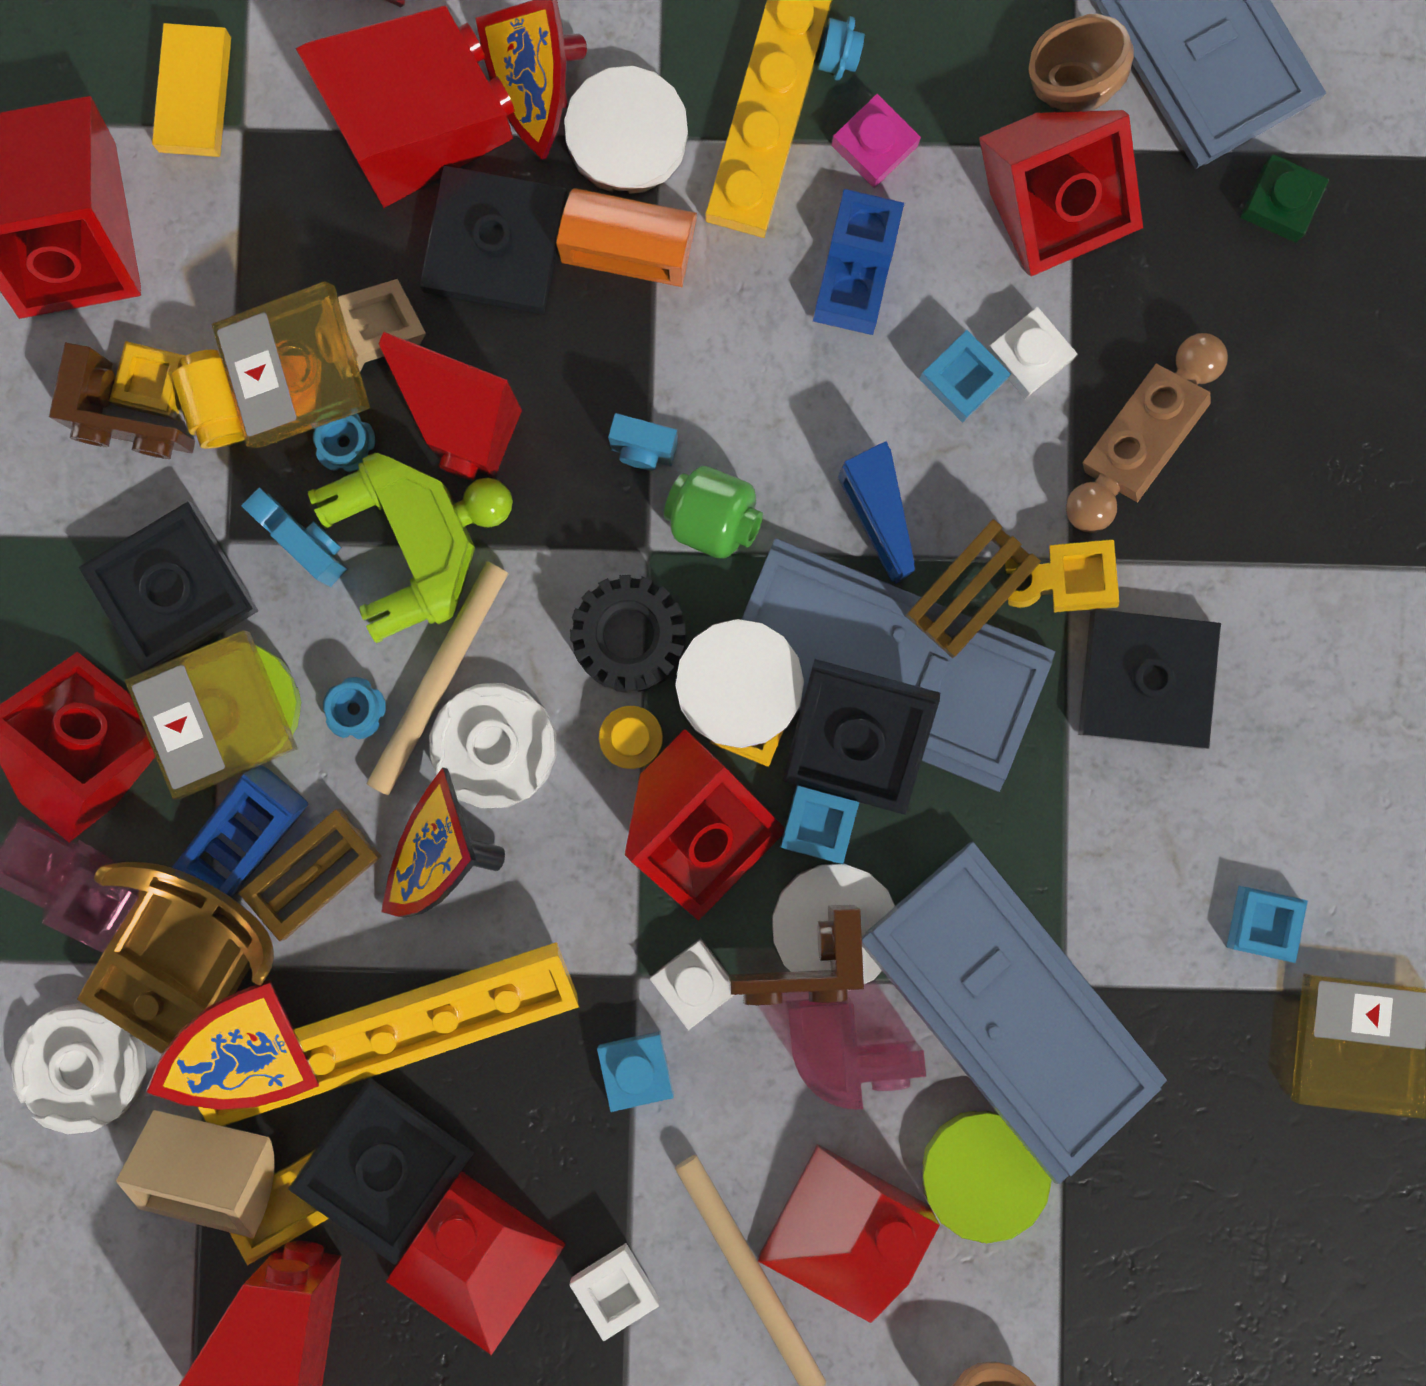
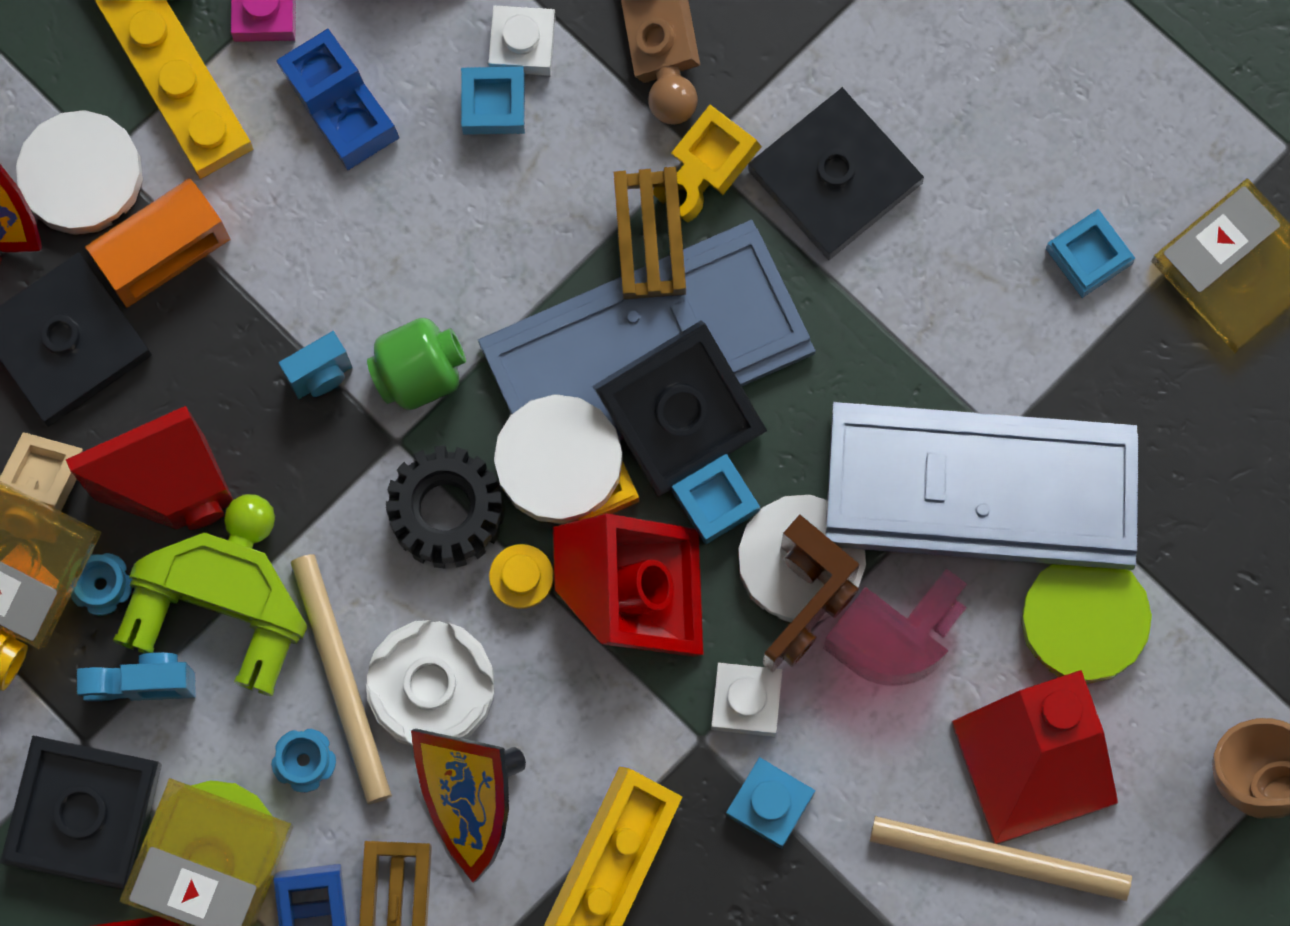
camera: 40 degrees left, 10 degrees down
(876, 498) = (524, 244): blue slope -> none

